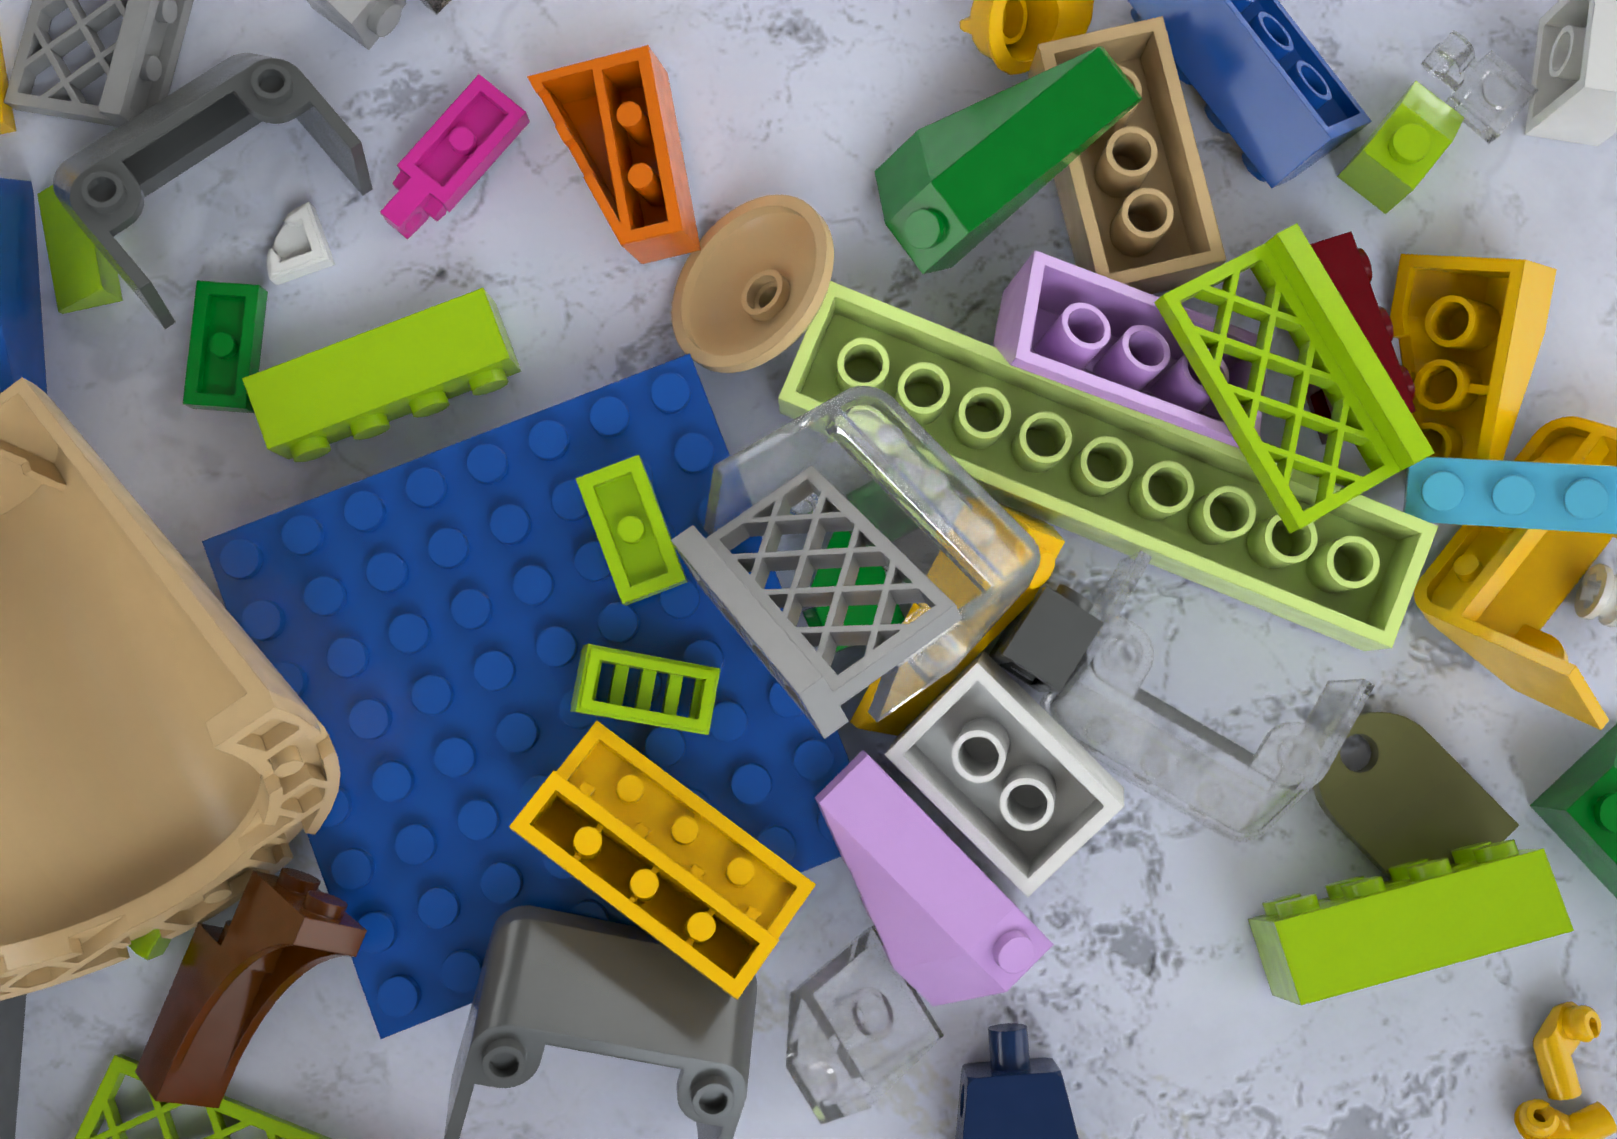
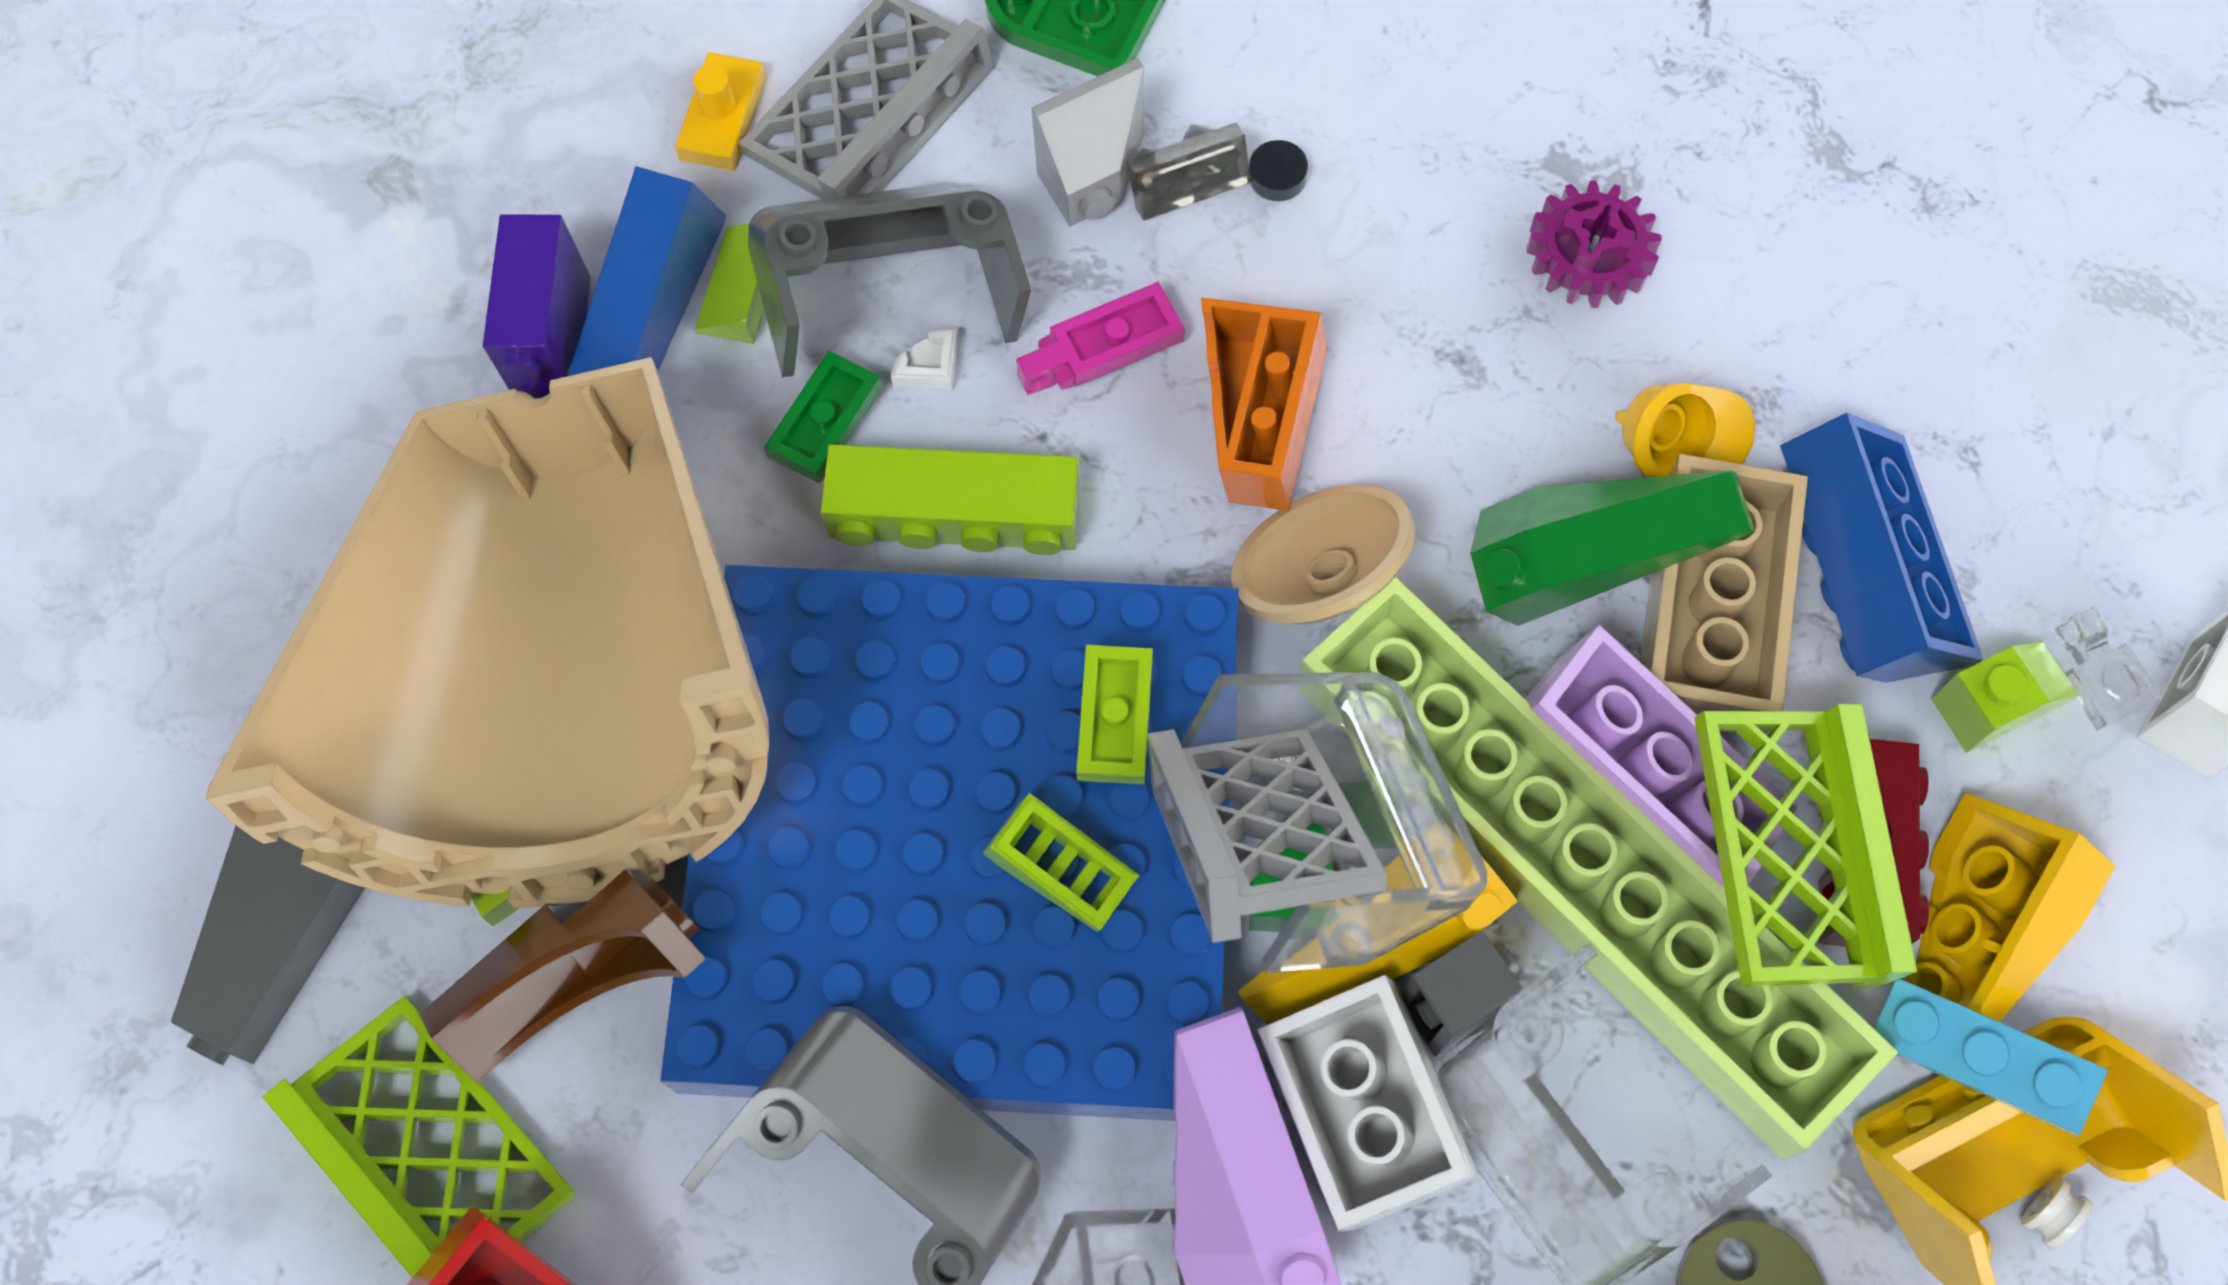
camera: 25 degrees right, 15 degrees down
(664, 858) = (1010, 1021): yellow brick -> none

